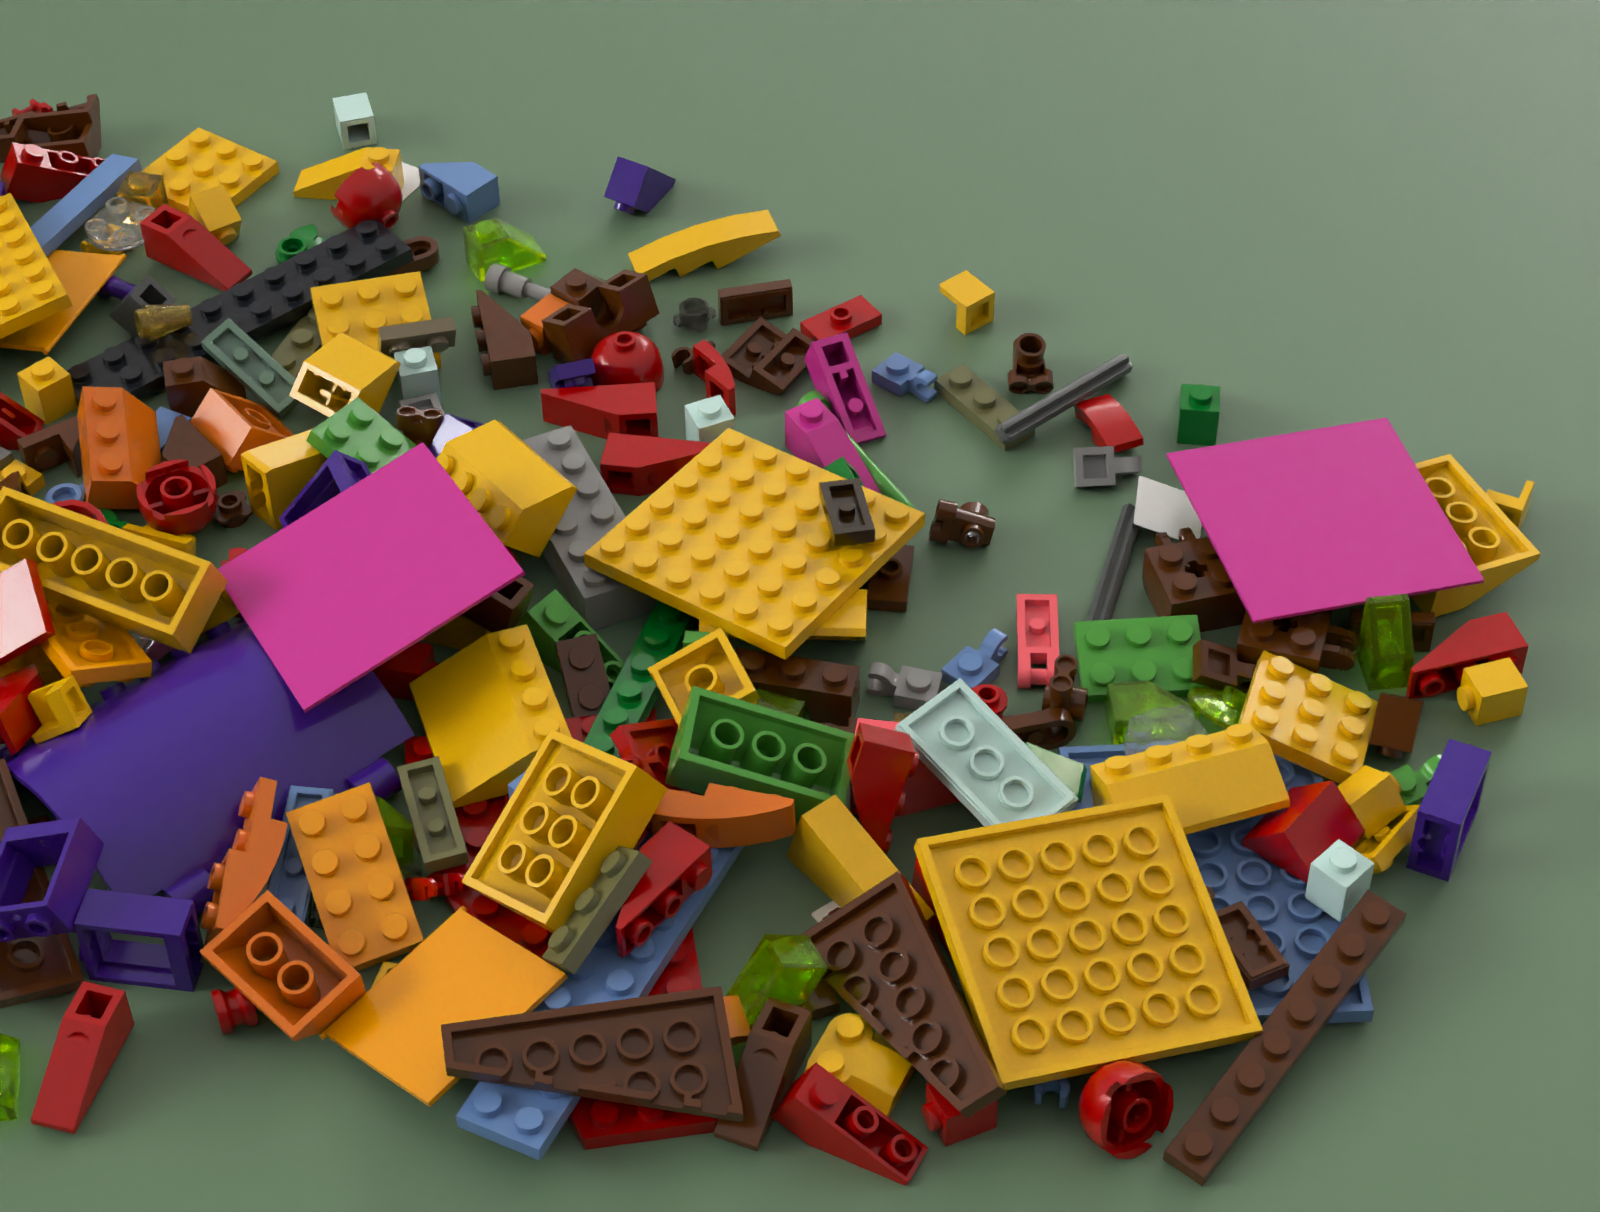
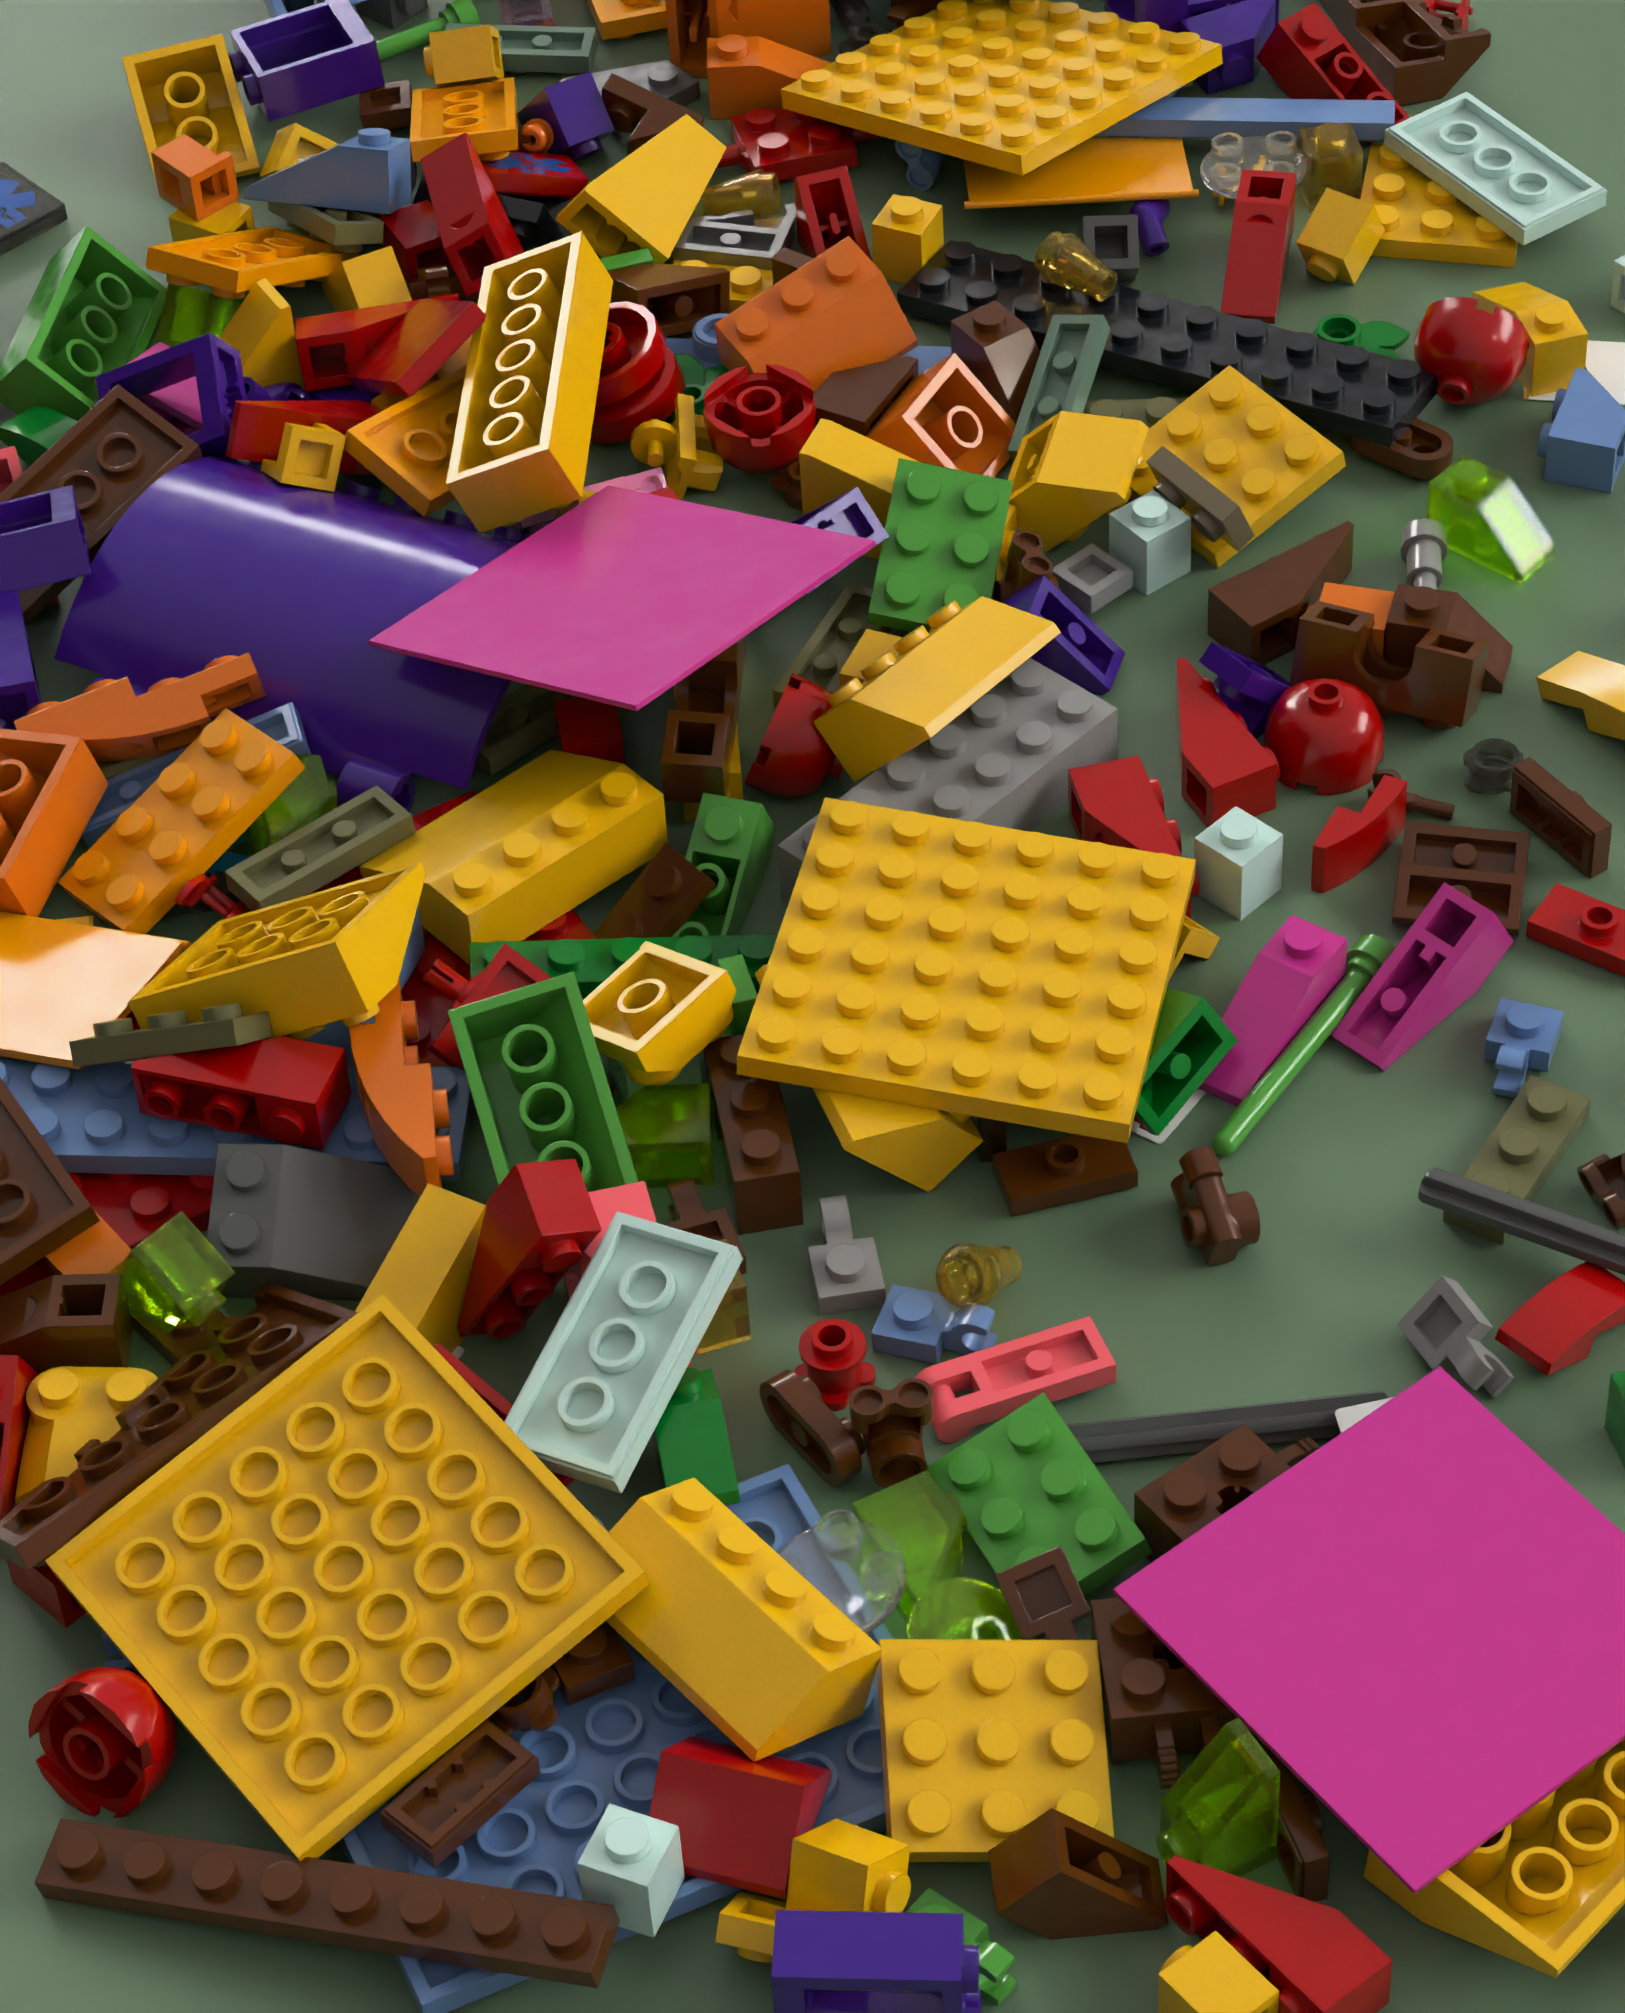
camera: 70 degrees right, 0 degrees up
(209, 138) = (1495, 168): none -> light aqua tile
(751, 900) = (304, 1219): none -> dark grey slope
(846, 512) = (1036, 1021): dark brown plate -> none
(965, 626) = (976, 1273): none -> clear yellow cone

